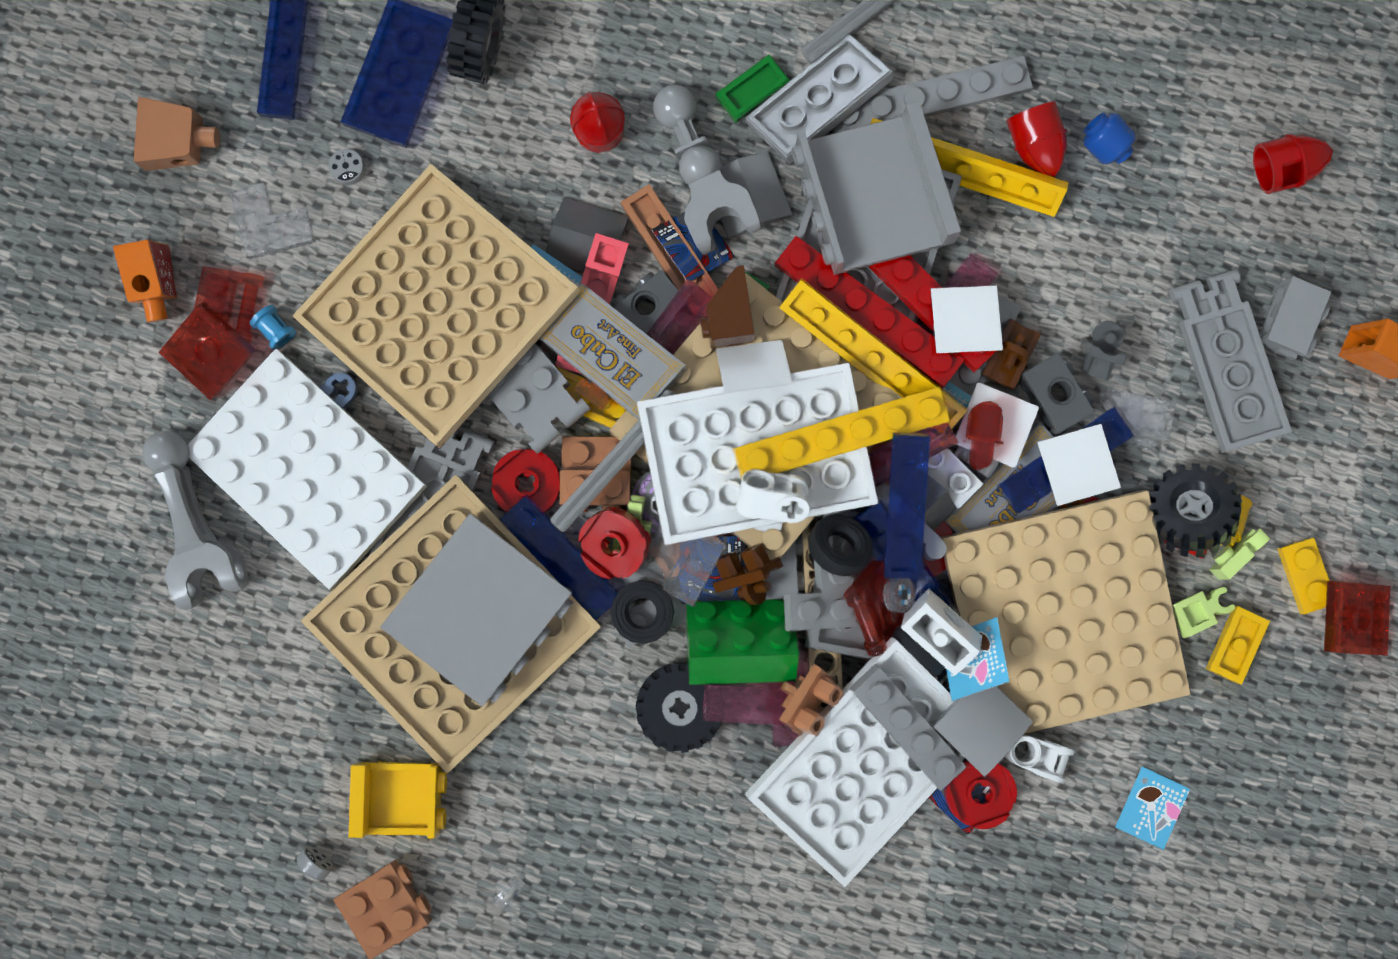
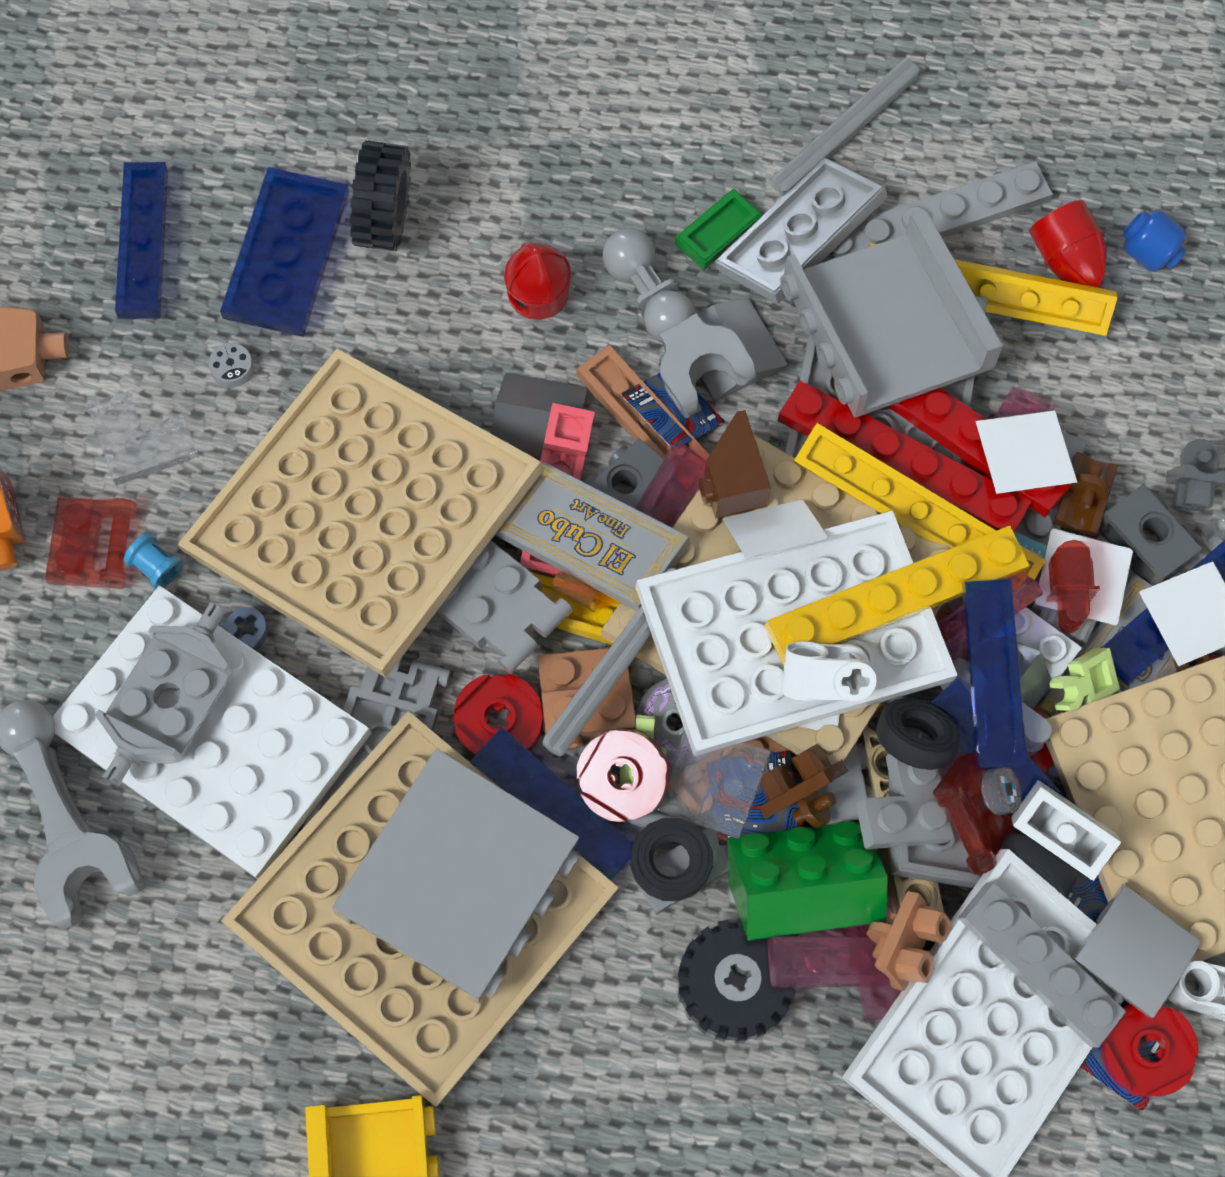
camera: 10 degrees left, 15 degrees down
(207, 351) = (72, 596): clear red plate -> none
(247, 457) = (173, 659): none -> light grey plate
(985, 509) = (1090, 680): none -> yellowish green plate
(986, 669) = (1125, 874): medium azure sticker -> none

